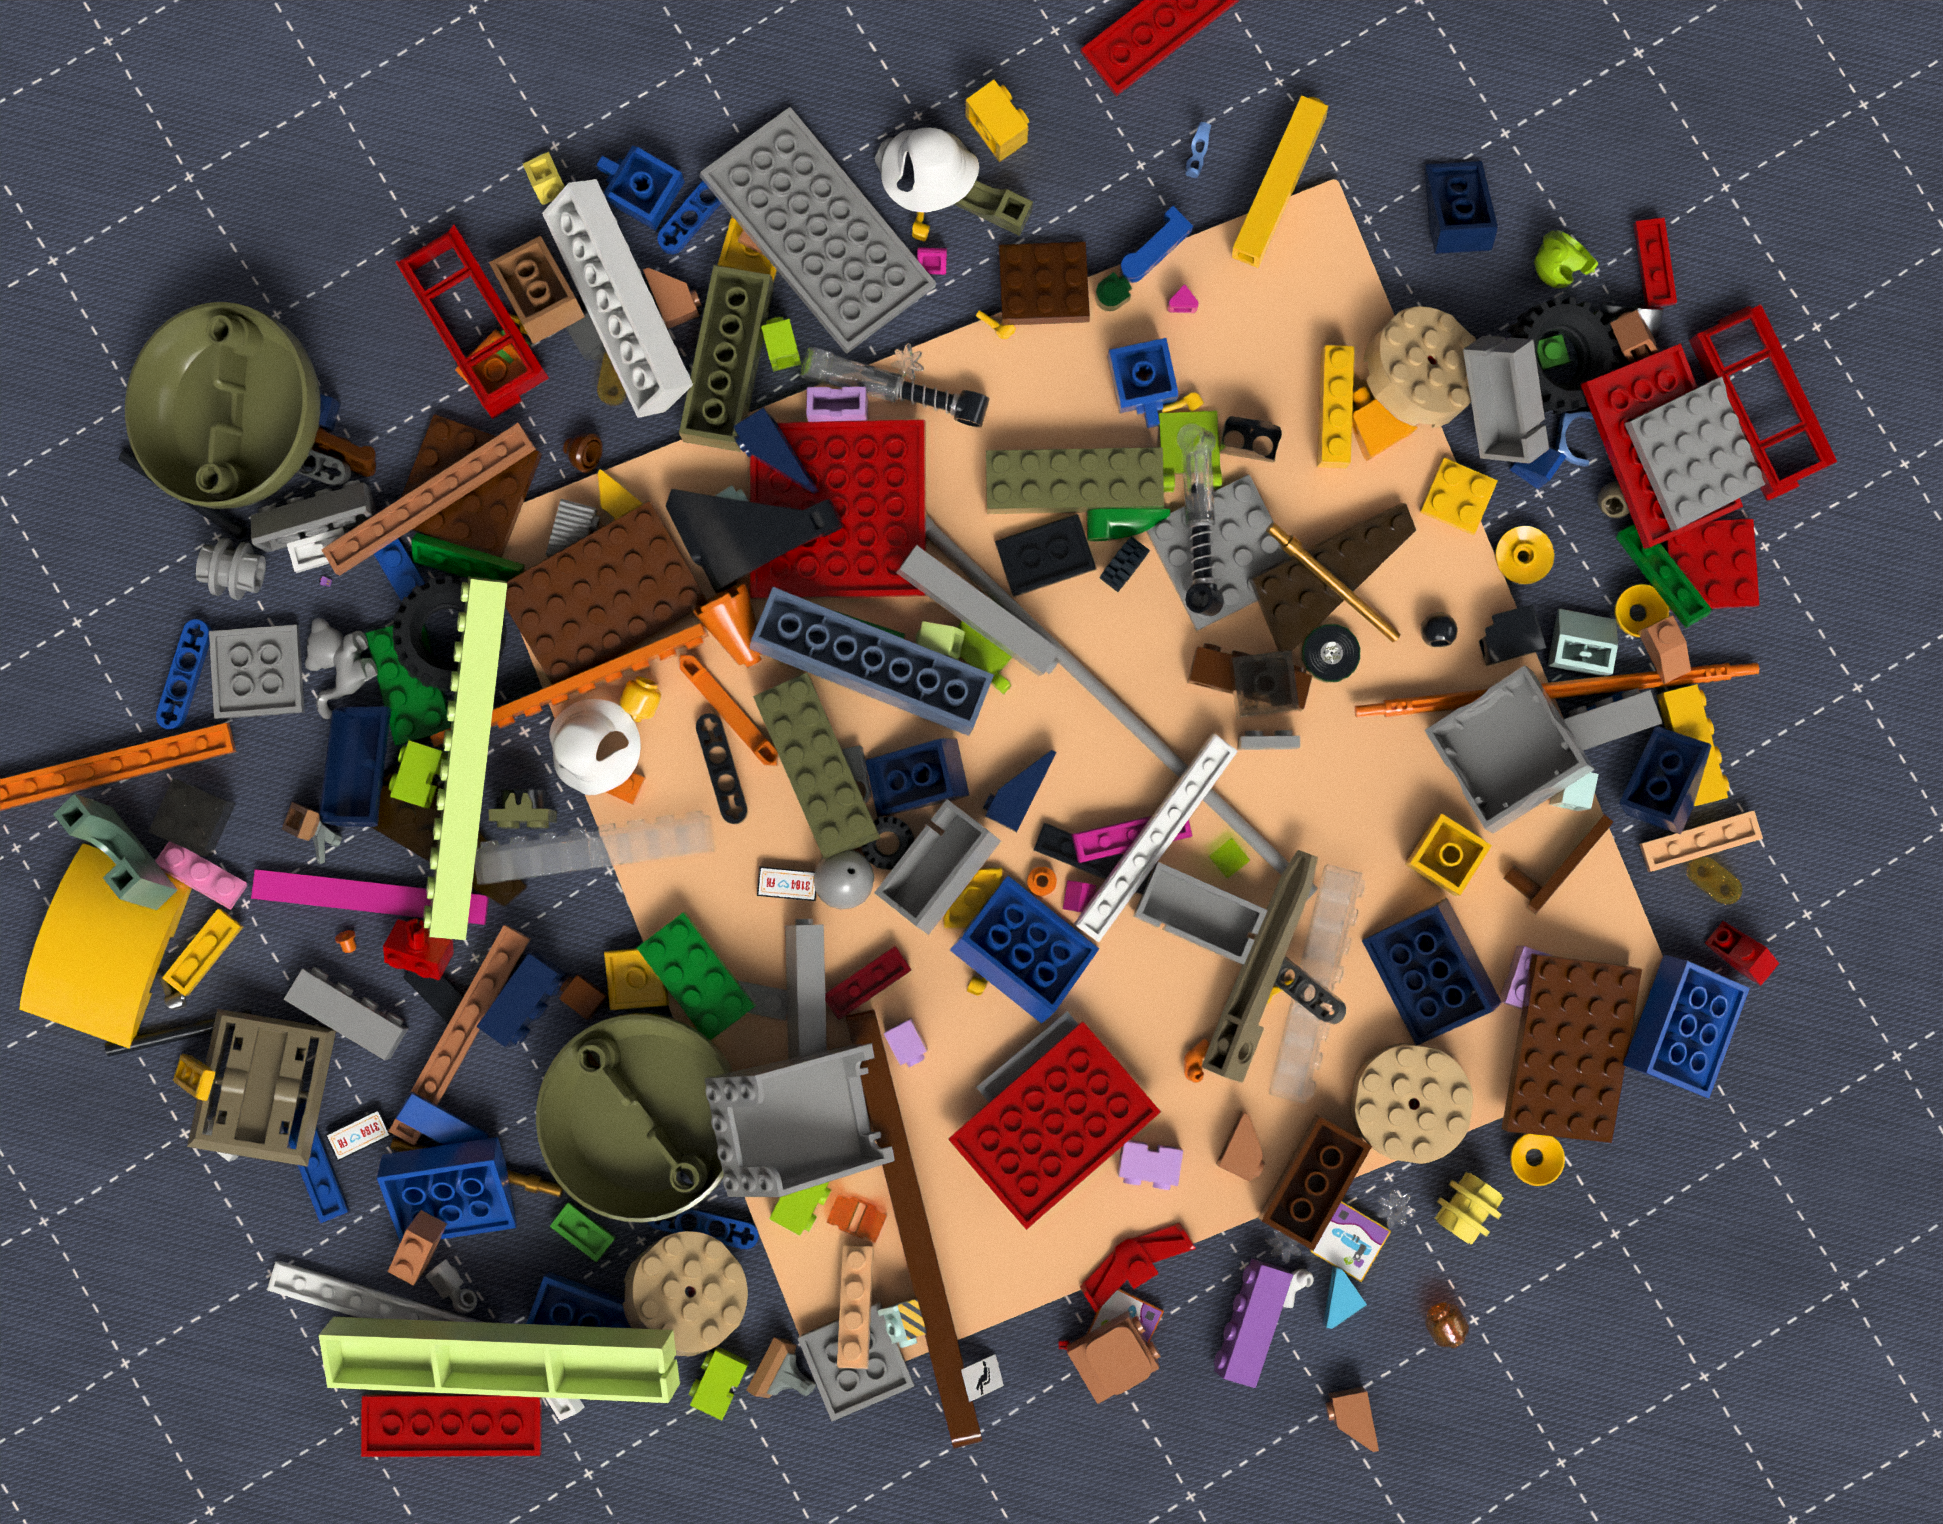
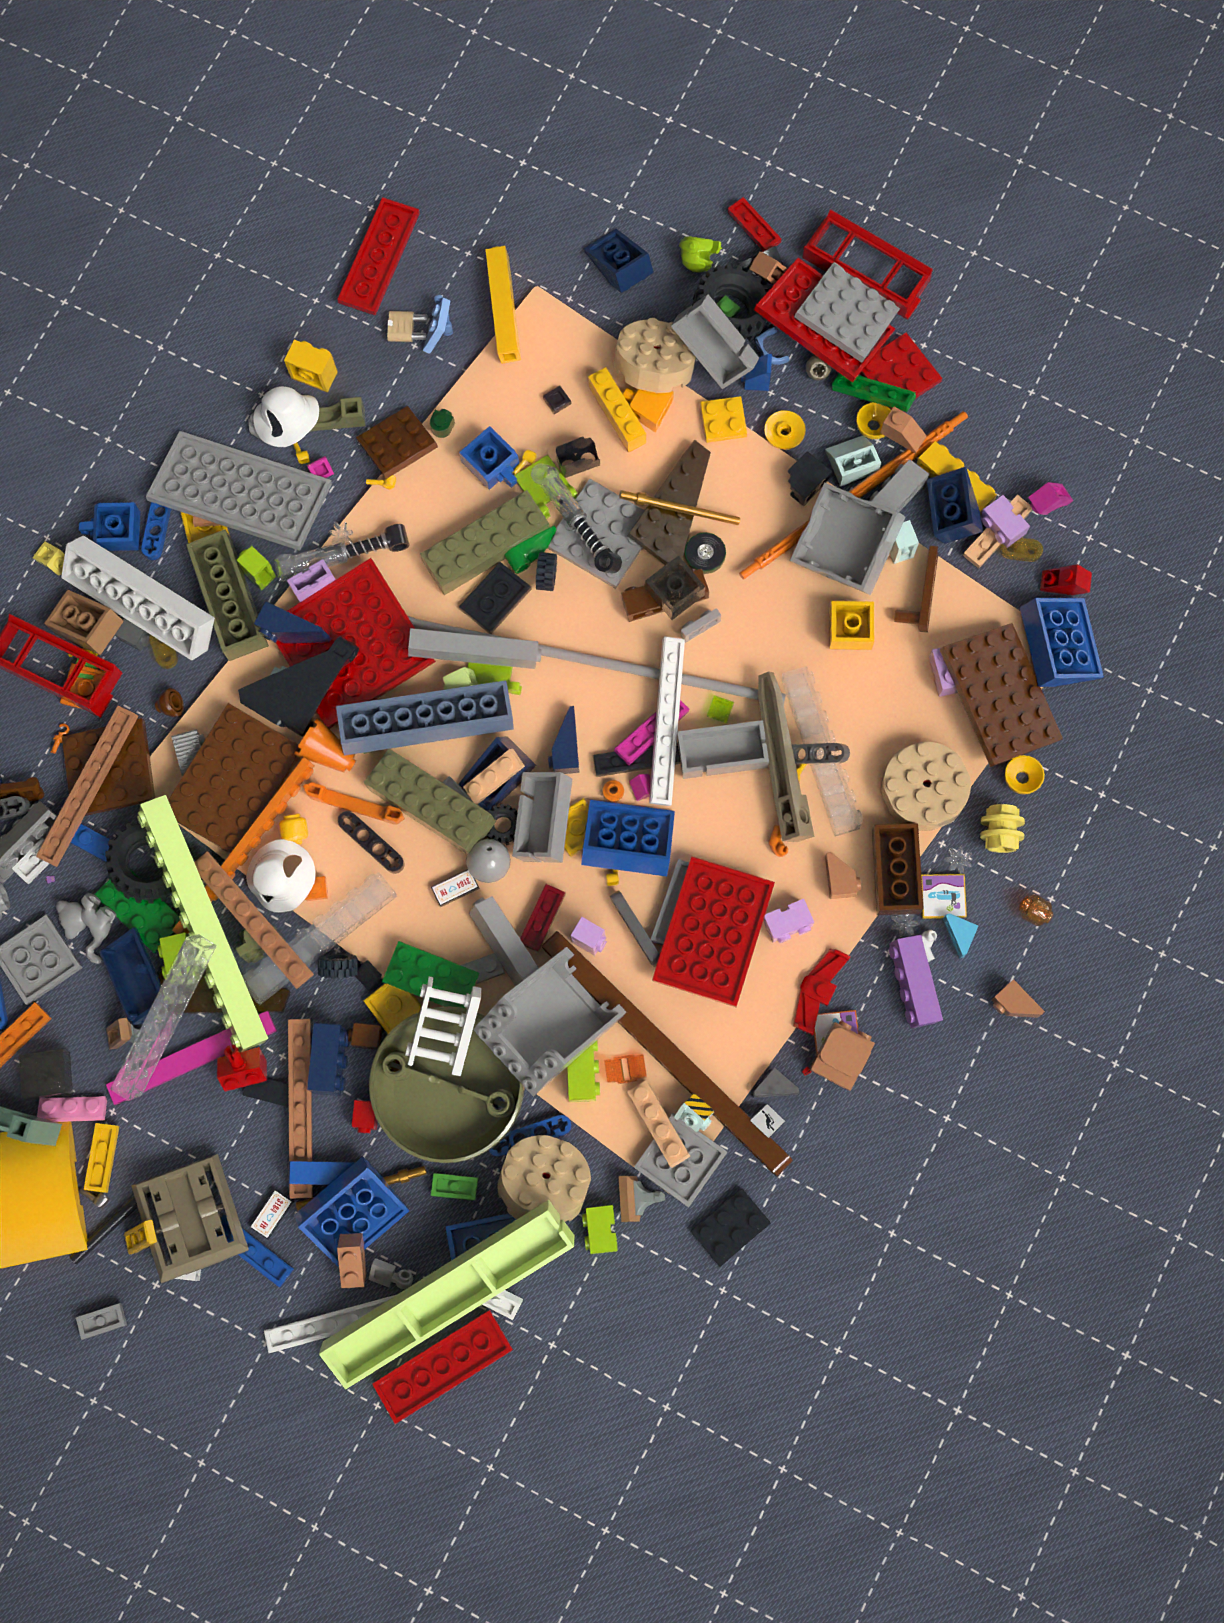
camera: 25 degrees left, 10 degrees down
(100, 1140) = (101, 1321): none -> light grey plate
(346, 941) = (192, 1095): orange piece -> none
(346, 1013) = (218, 1139): light grey brick -> none
(360, 842) = (163, 1016): none -> clear brick
(428, 413) = (58, 738): none -> orange hand
(462, 560) = (119, 815): green plate -> none
(525, 1089) = (364, 1117): none -> red brick
(526, 787) = (253, 920): none -> nougat plate
(597, 895) = (337, 965): none -> black bush
(614, 497) = (204, 717): yellow tile -> none
(627, 925) = (368, 975): none -> black tile
(673, 298) = (174, 579): nougat slope -> none
(684, 1080) = (460, 1040): none -> white fence
(867, 1468) = (730, 1227): none -> black plate
(910, 782) = (493, 776): none -> light nougat plate
(968, 1062) = (635, 927): none -> dark grey beam
(1015, 1341) = (775, 1085): none -> flat silver slope
(1139, 264) = (452, 385): blue leg -> none
(1140, 131) = (402, 326): none -> tan piece
(1183, 160) = (437, 324): none -> light blue wing
(1183, 302) = (488, 403): dark pink slope -> none
(1271, 346) = (557, 399): none -> black tile
(1432, 972) = (886, 701): dark blue slope -> none
(1439, 630) = (761, 500): black piece -> none
(1713, 838) = (1004, 522): none -> lavender brick
(1789, 840) = (1049, 498): none -> dark pink arch

